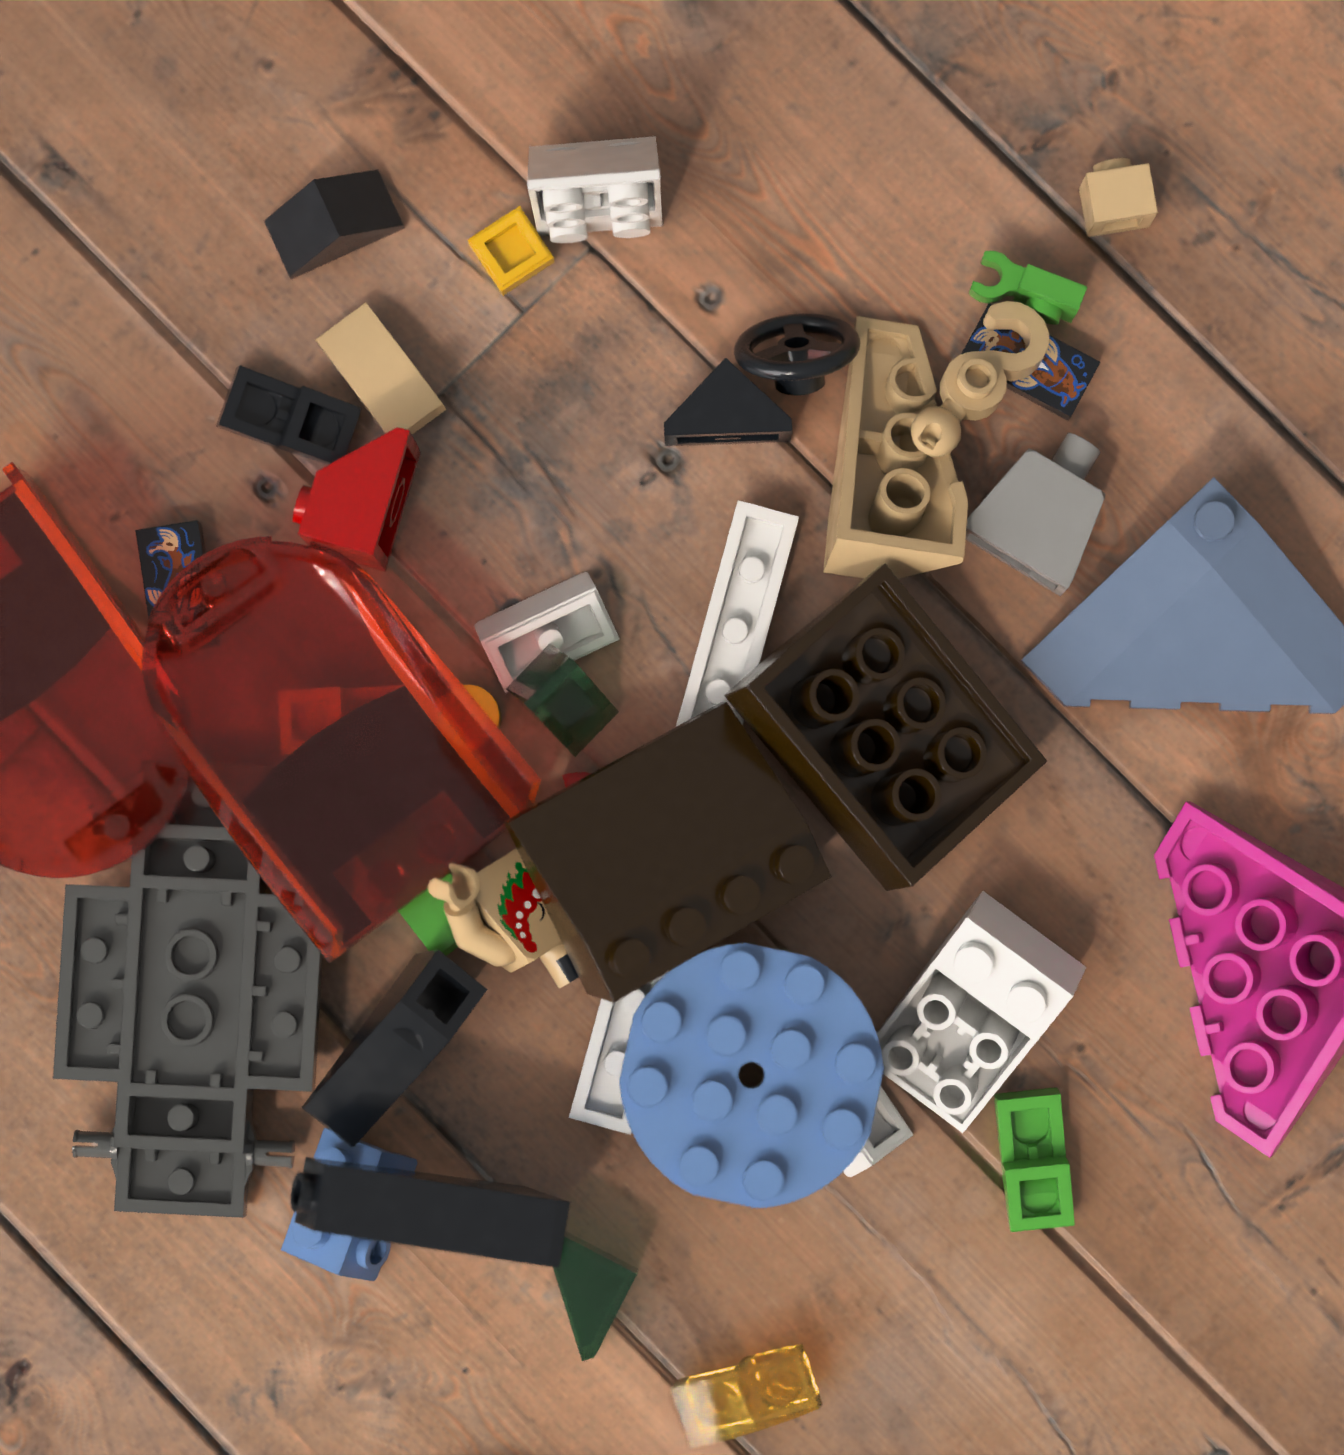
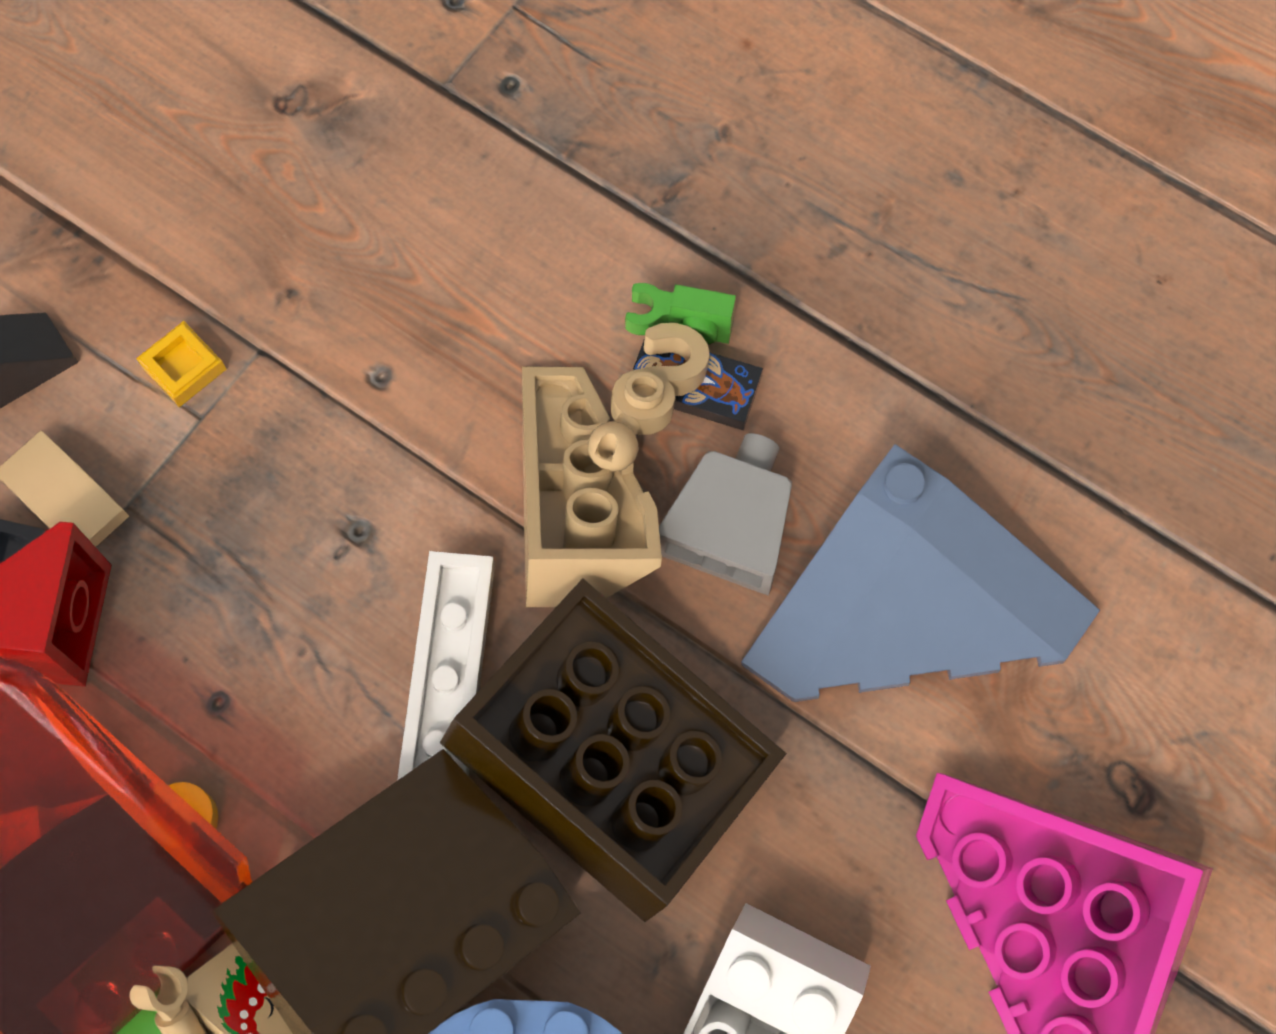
camera: 15 degrees left, 15 degrees down
(563, 699) = (278, 781): clear green slope -> none
(564, 615) = (254, 718): white slope -> none
(595, 188) = (248, 286): white slope -> none
(727, 411) = (406, 472): black slope -> none
(798, 360) = (468, 404): black piece -> none
(1117, 197) = (750, 222): tan plate -> none

